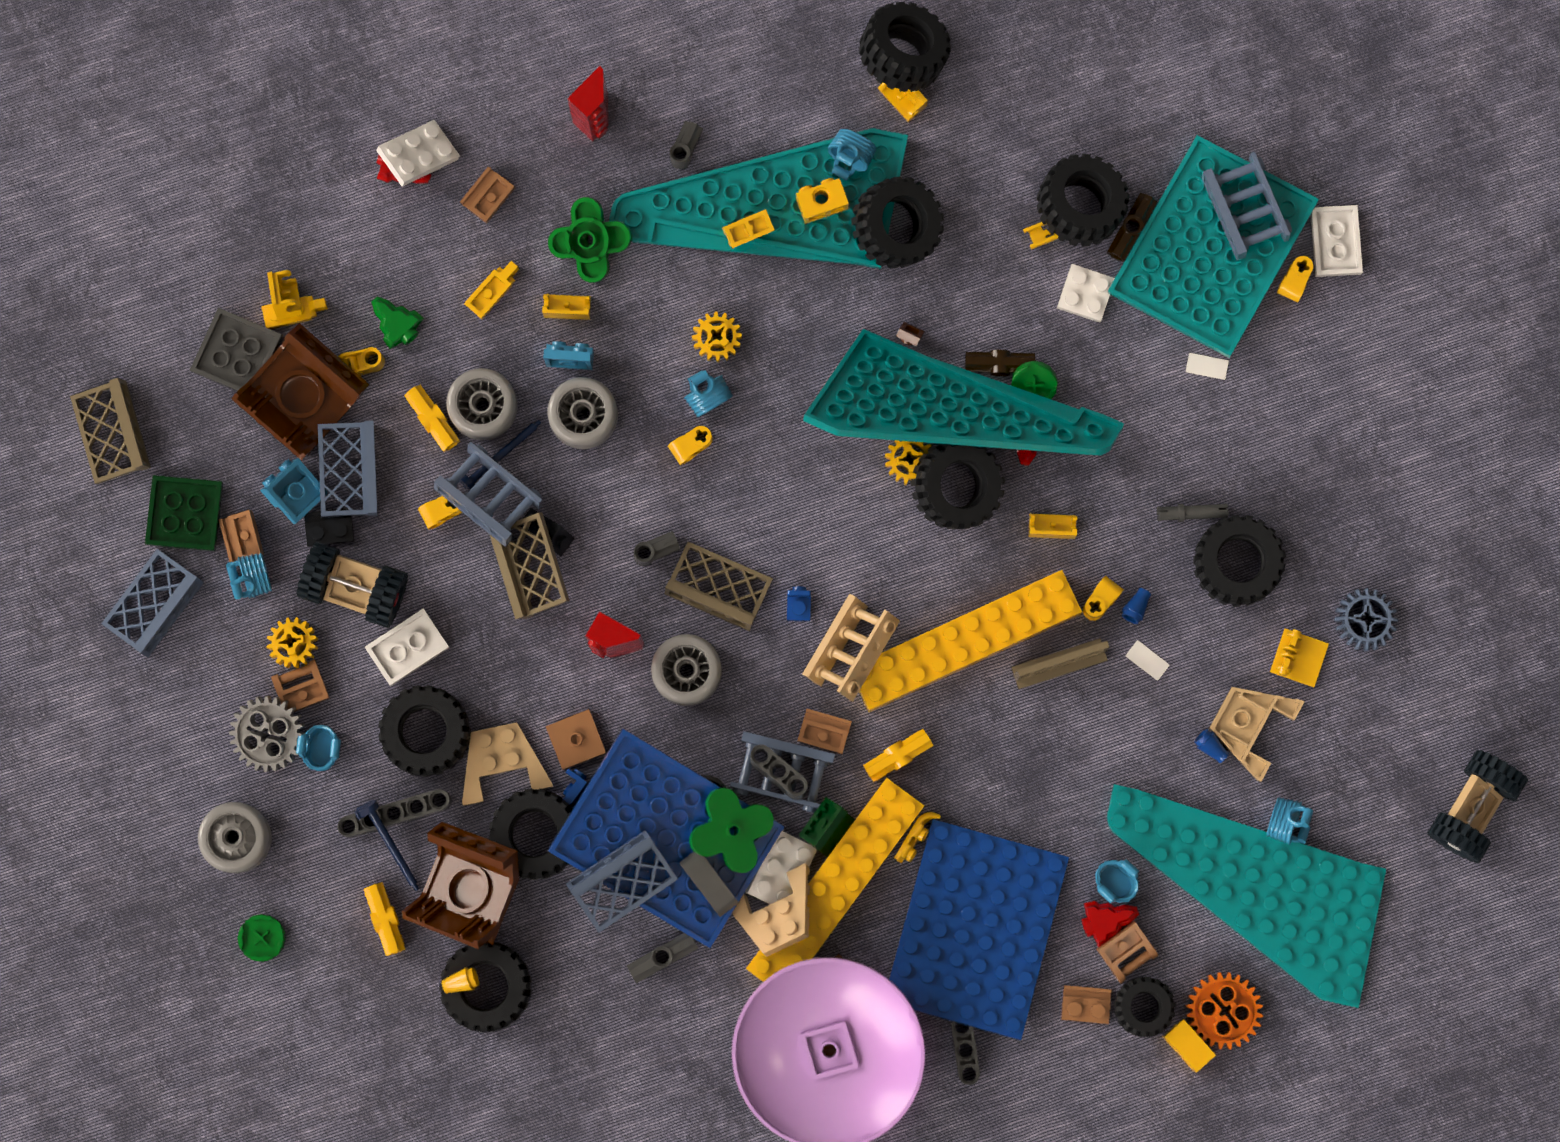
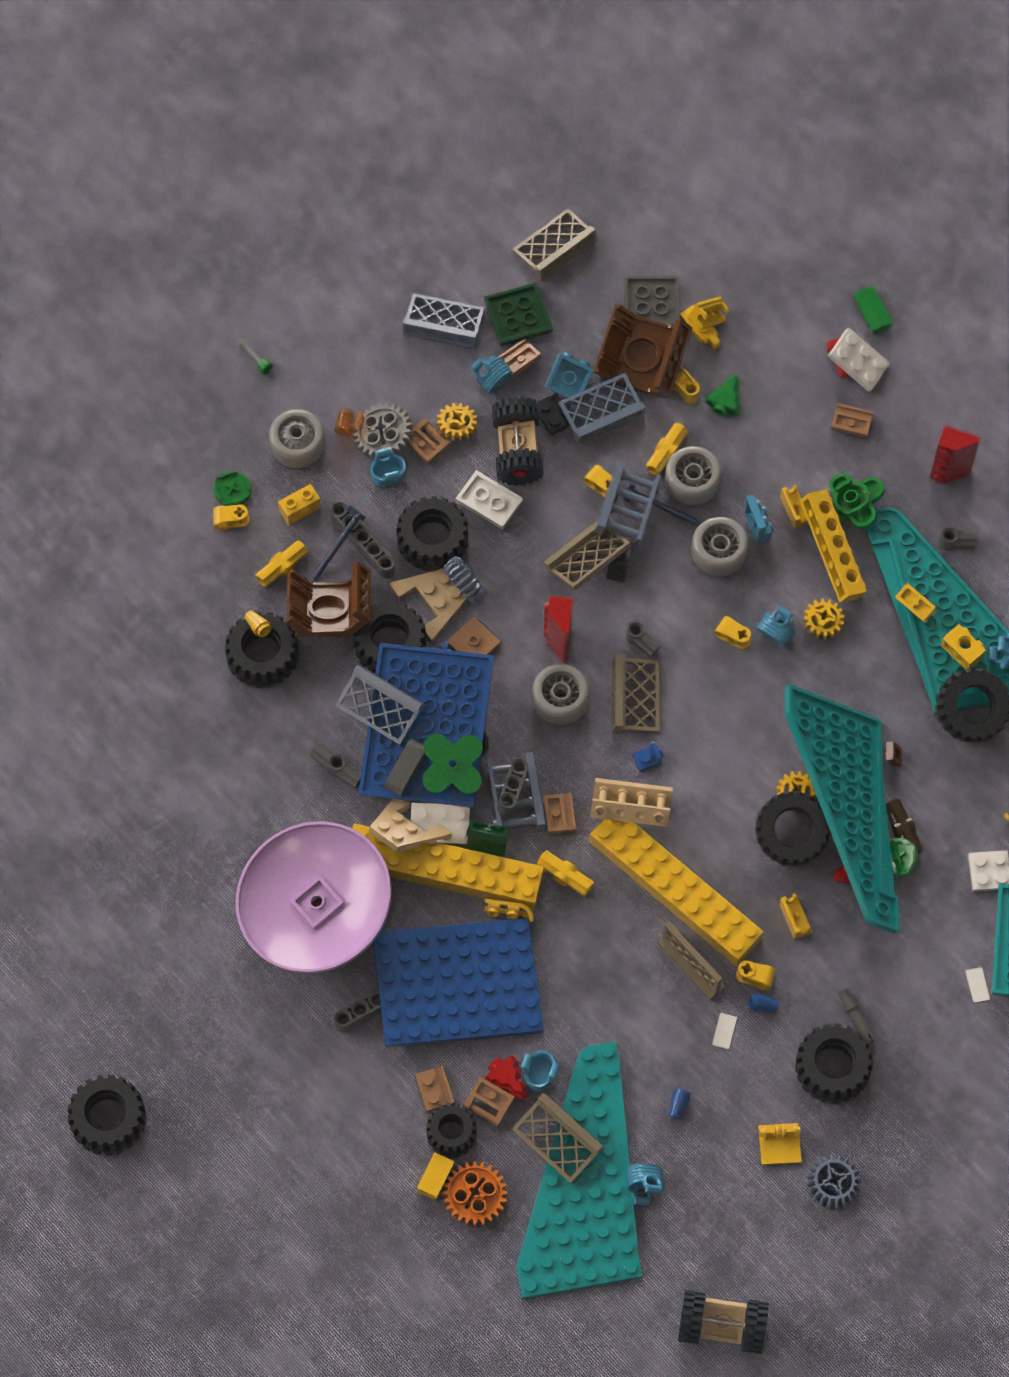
camera: 65 degrees right, 15 degrees down
(118, 837) = (263, 365): none -> green hinge
(236, 772) = (345, 422): none -> clear orange piece
(296, 959) = (228, 517): none -> yellow piece
(319, 868) = (299, 504): none -> yellow brick
(358, 107) = (873, 310): none -> green piece
(492, 290) = (782, 451): yellow hinge -> none
(502, 718) = (465, 580): none -> sand blue gear
(629, 293) = (833, 546): none -> yellow brick
(1193, 876) = (568, 1124): none -> dark tan fence
(1242, 719) = (709, 1118): tan wing -> none

